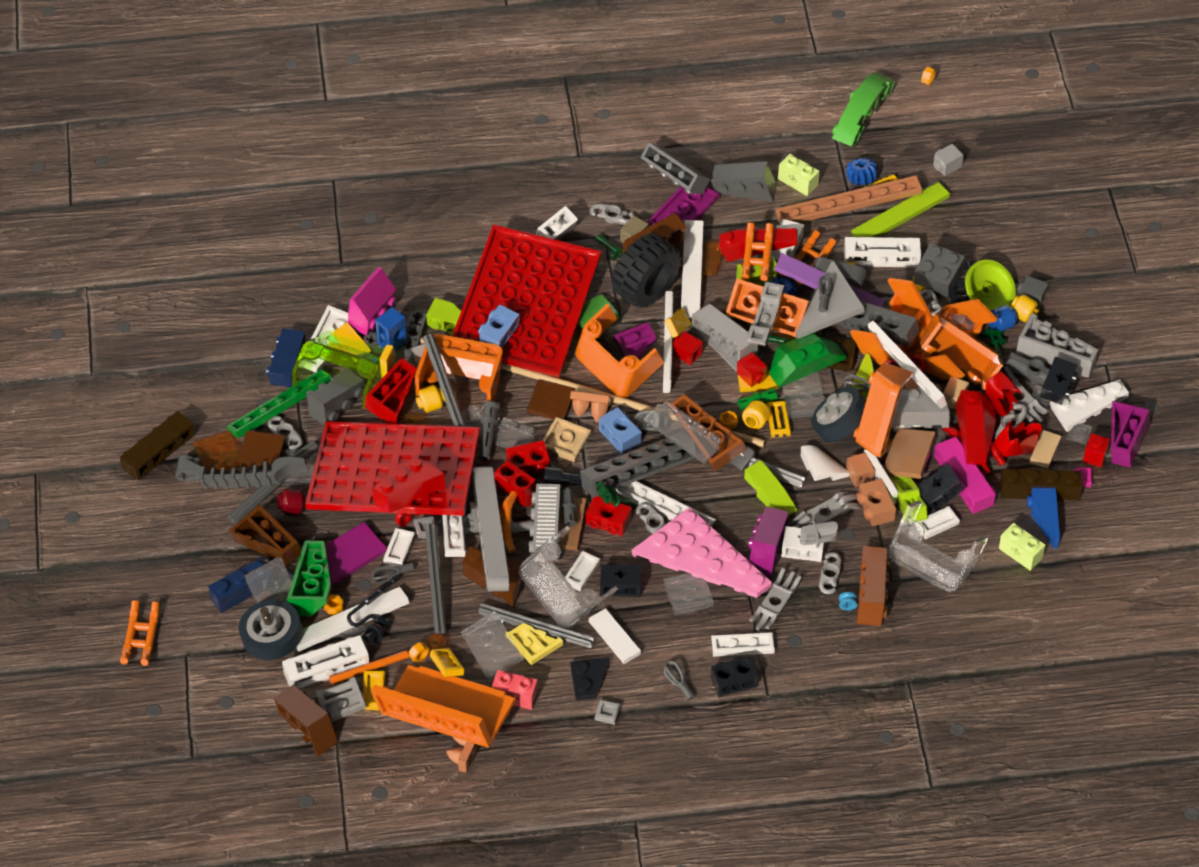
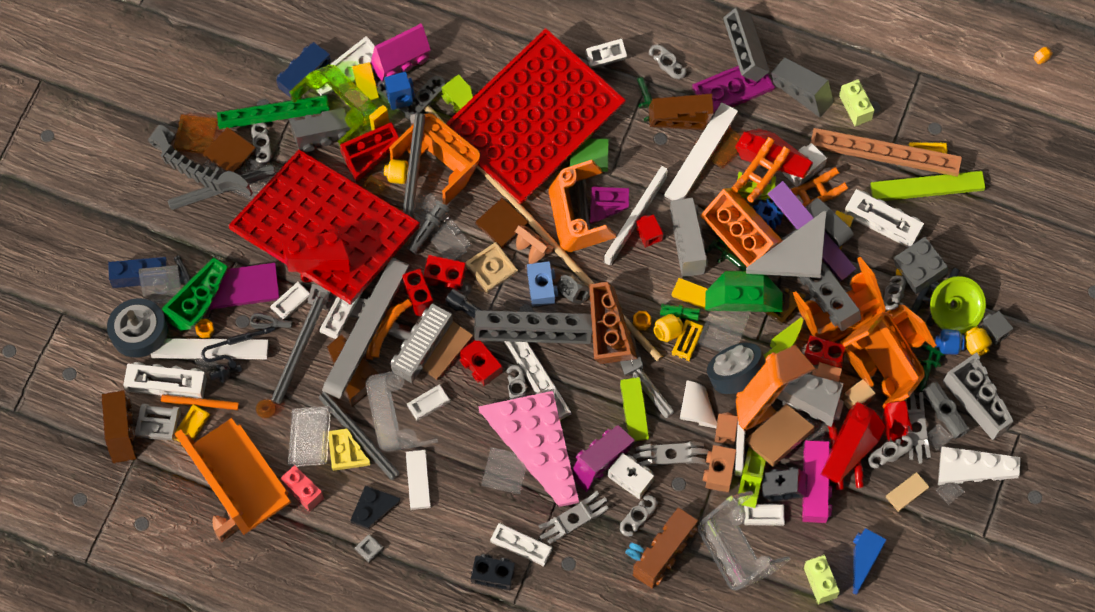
camera: 30 degrees right, 15 degrees up
(135, 625) = (36, 265): orange piece -> none
(157, 445) = (149, 103): dark brown brick -> none
(265, 535) = (186, 236): reddish brown wedge -> none
(291, 501) = (225, 212): dark red head -> none
(419, 652) = (246, 410): light orange tile -> none
(447, 662) = (261, 433): yellow plate -> none
(503, 318) = (487, 143): medium blue brick -> none
(568, 507) = (449, 337): dark grey axle -> none
(611, 496) = (491, 349): dark green piece -> none
(624, 577) = (457, 438): black brick -> none
(632, 227) = (673, 88): dark tan brick -> none
(646, 270) = (651, 139): black tyre -> none
(677, 322) = (653, 202): yellow tile -> none
(679, 430) = (583, 316): clear windscreen -> none
(681, 685) = (445, 556): dark grey piece -> none
(751, 369) = (689, 282): red brick -> none
(766, 314) = (727, 240): light grey slope -> none
(818, 533) = (643, 477): light grey arm -> none
(824, 297) = (792, 246): dark grey piece -> none
(861, 104) = (958, 59): bright green brick -> none
(861, 171) = (916, 127): blue gear -> none
(867, 386) = (769, 349): dark grey piece -> none
(895, 352) = (821, 351): white tile -> none
(948, 160) = (1004, 152): light grey brick -> none
(962, 321) = (904, 327): clear tile -> none
(1009, 440) = (898, 475): red piece -> none
(1019, 483) = (861, 516): dark brown brick -> none
(1052, 388) = (961, 424): black brick -> none
(1086, 476) = (923, 536): dark pink tile -> none
(1096, 450) = (950, 518): red brick -> none
(1127, 432) = (989, 516): magenta wedge -> none

